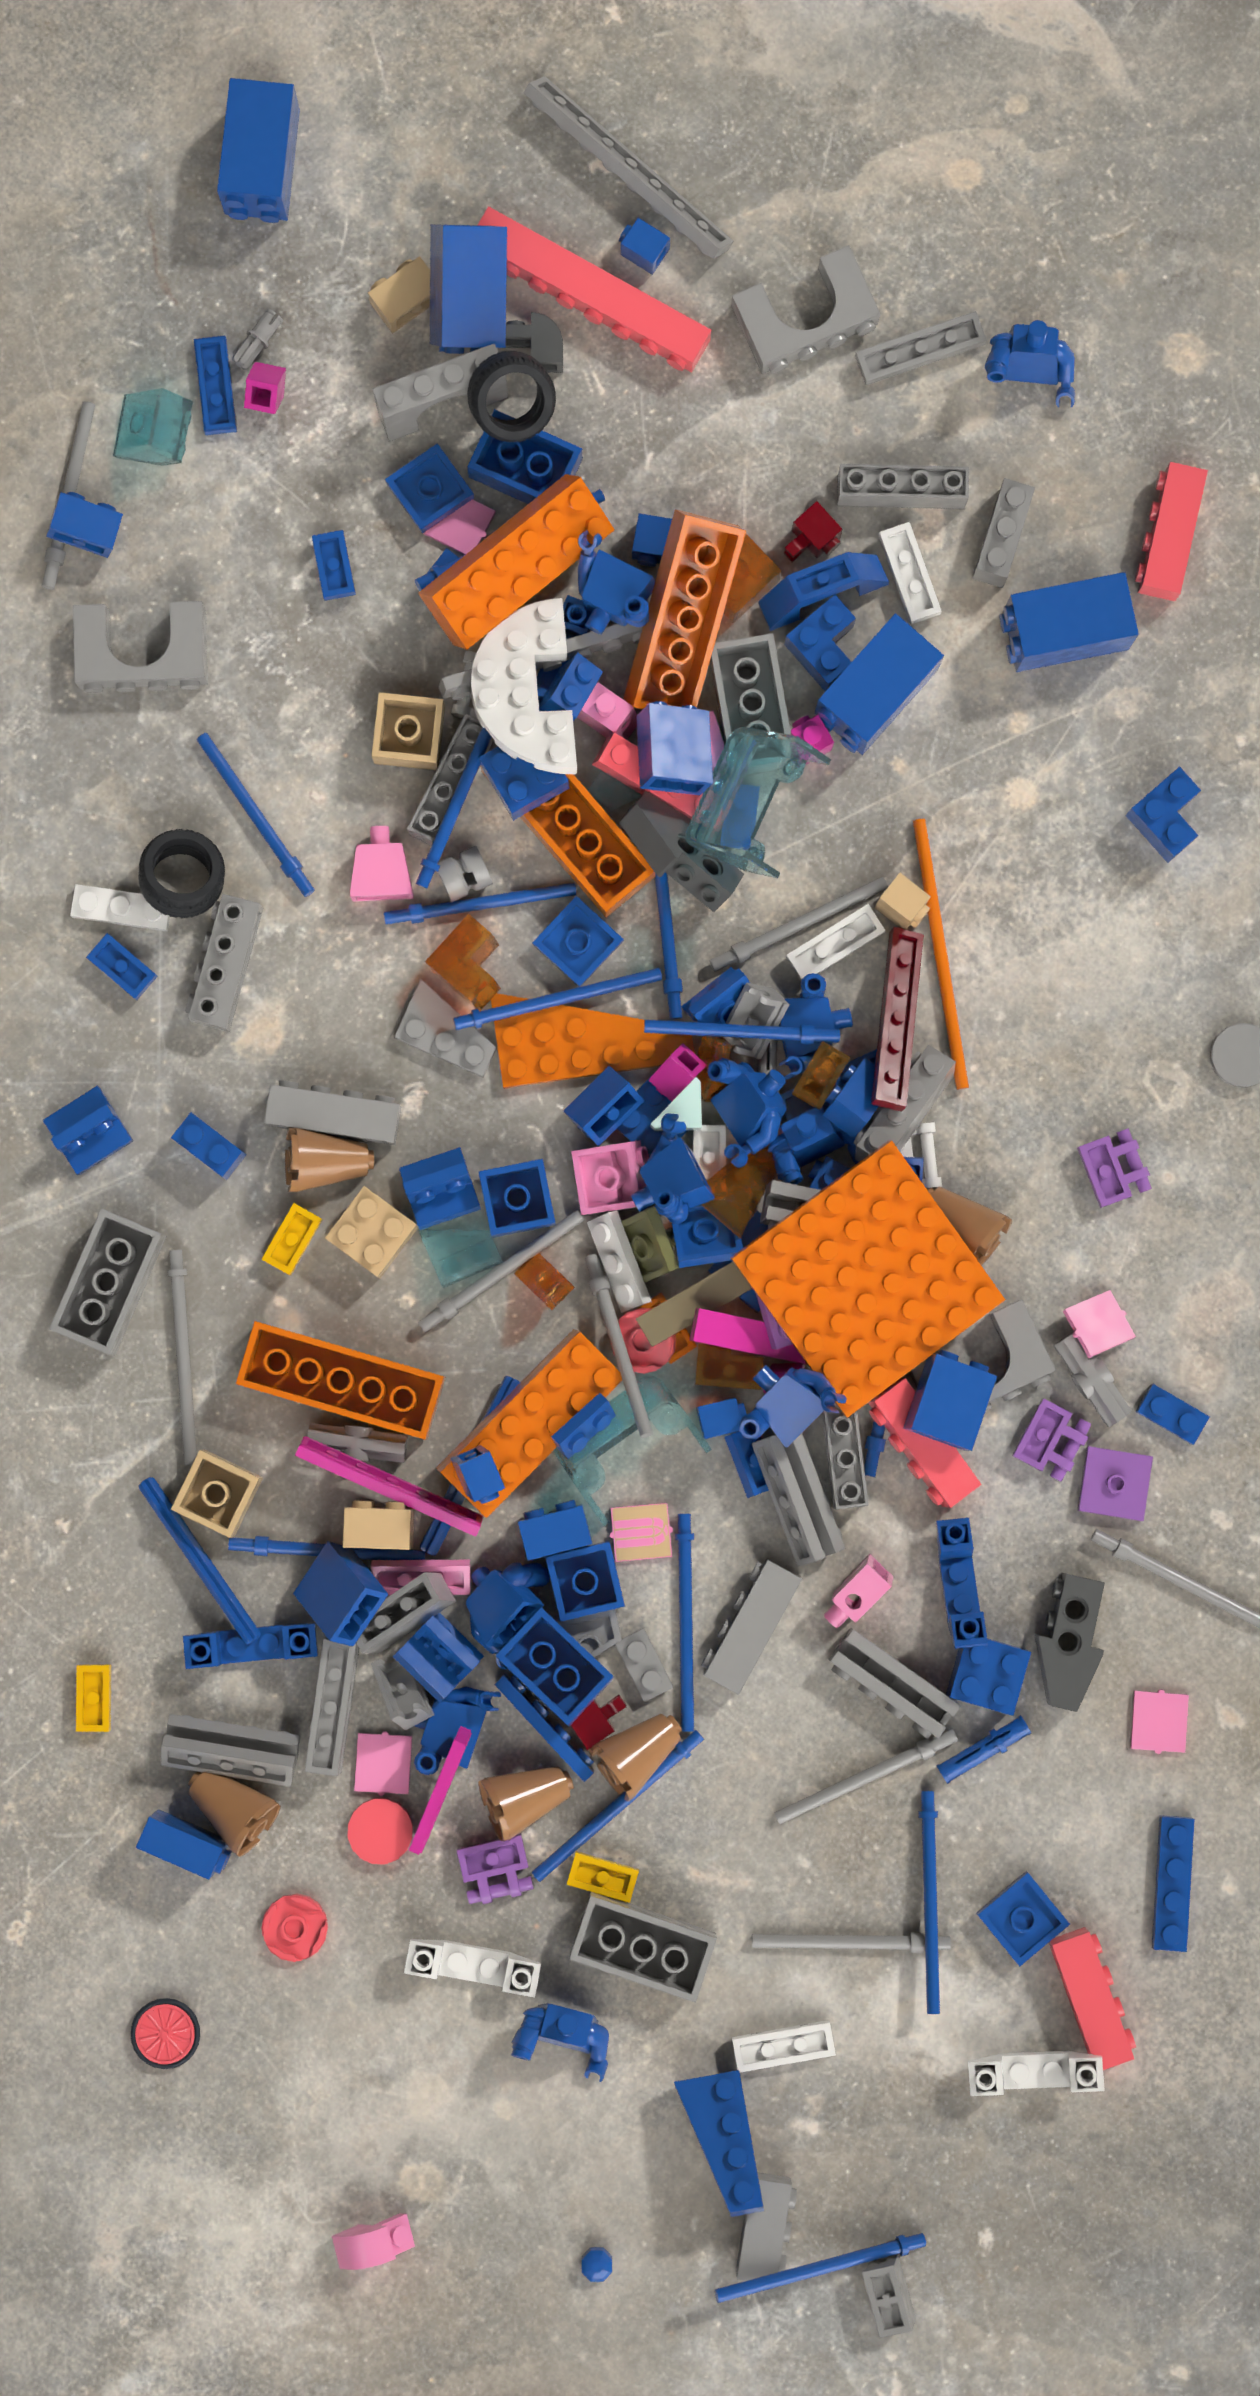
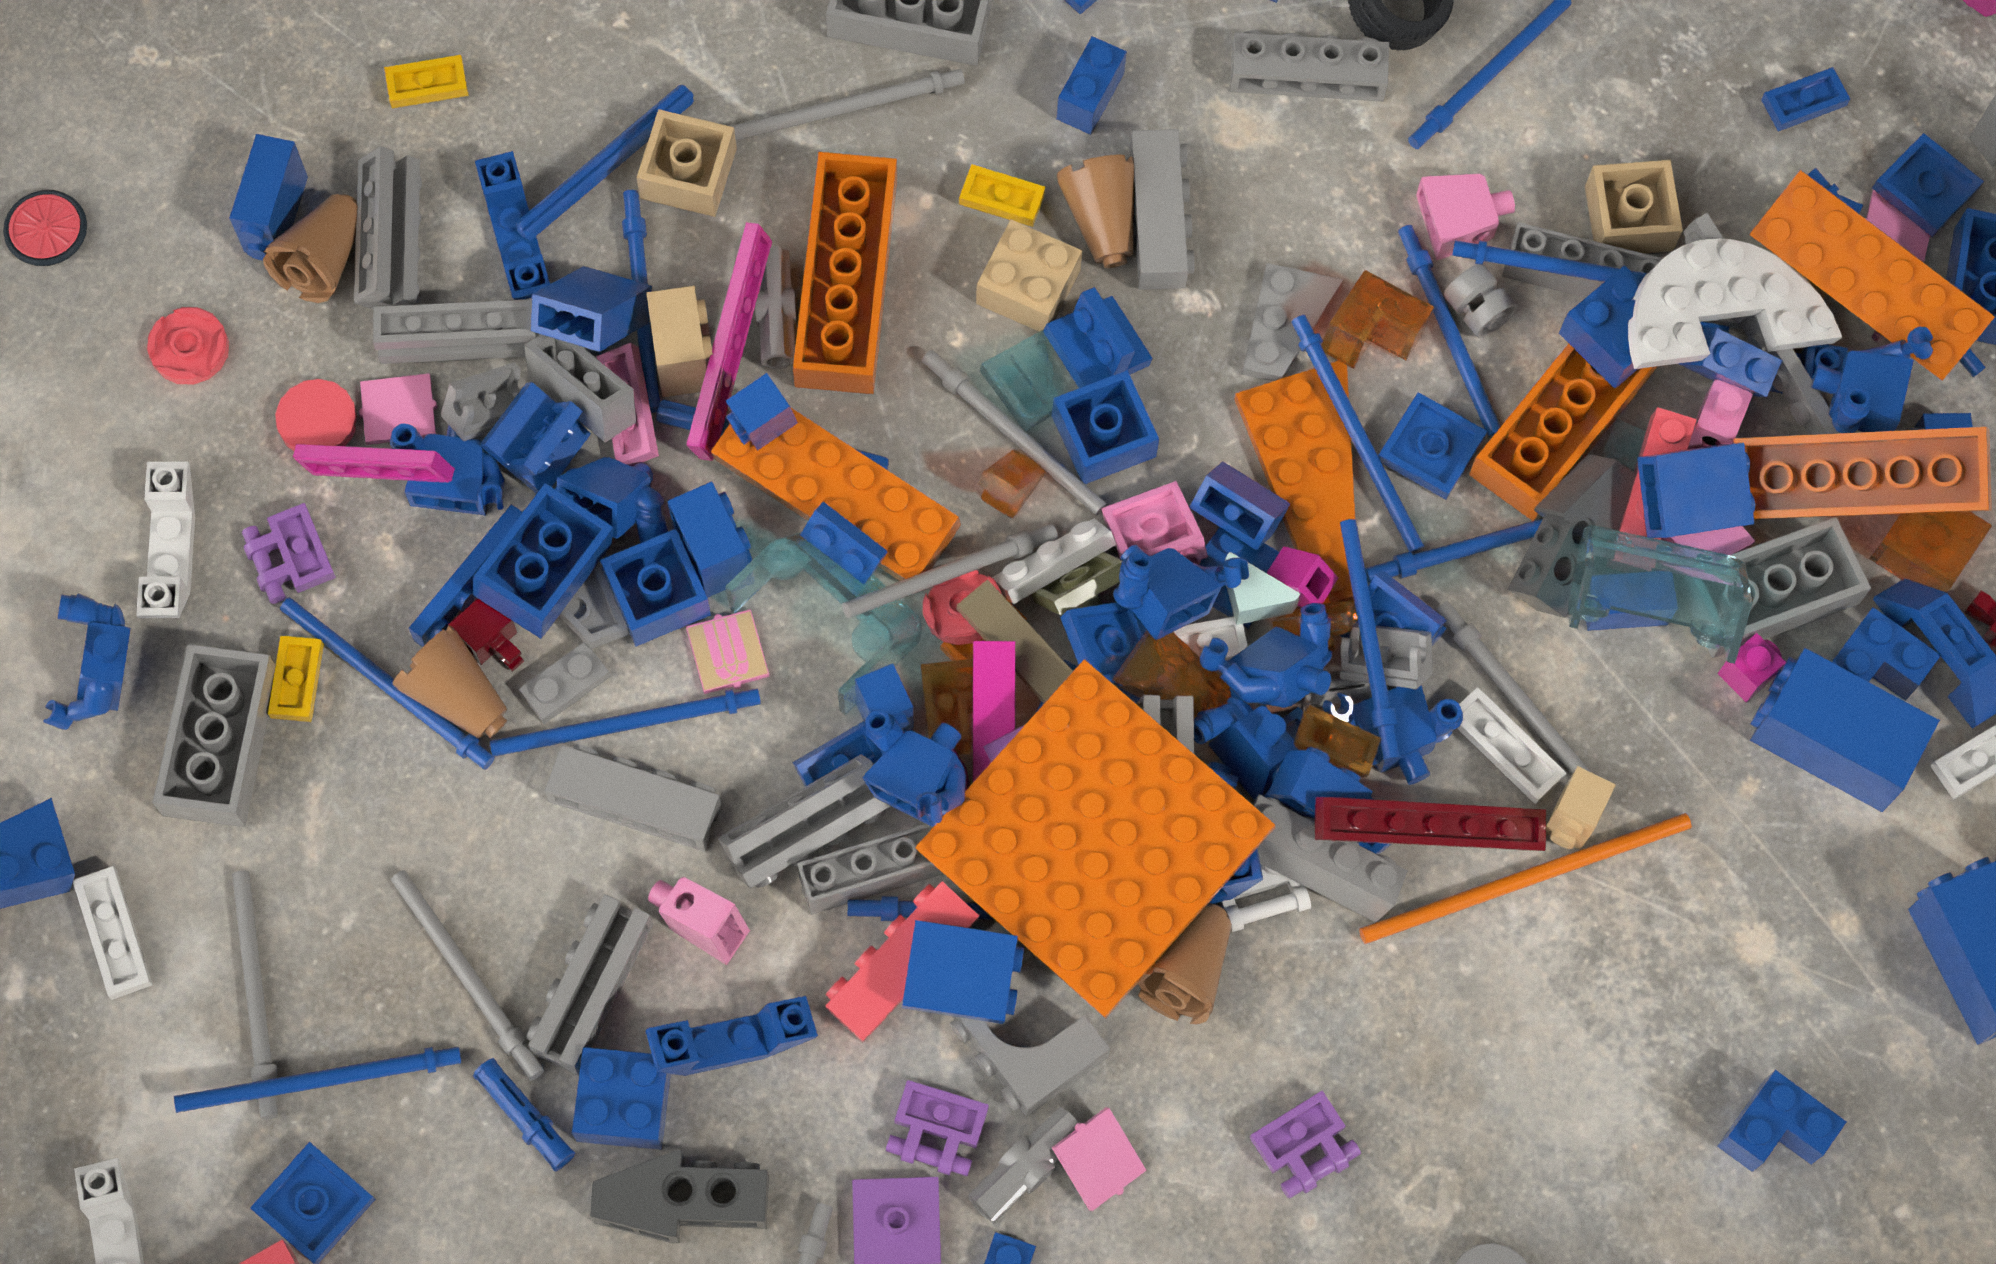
camera: 80 degrees right, 15 degrees down
(523, 1798) = (378, 564): medium nougat cone -> none

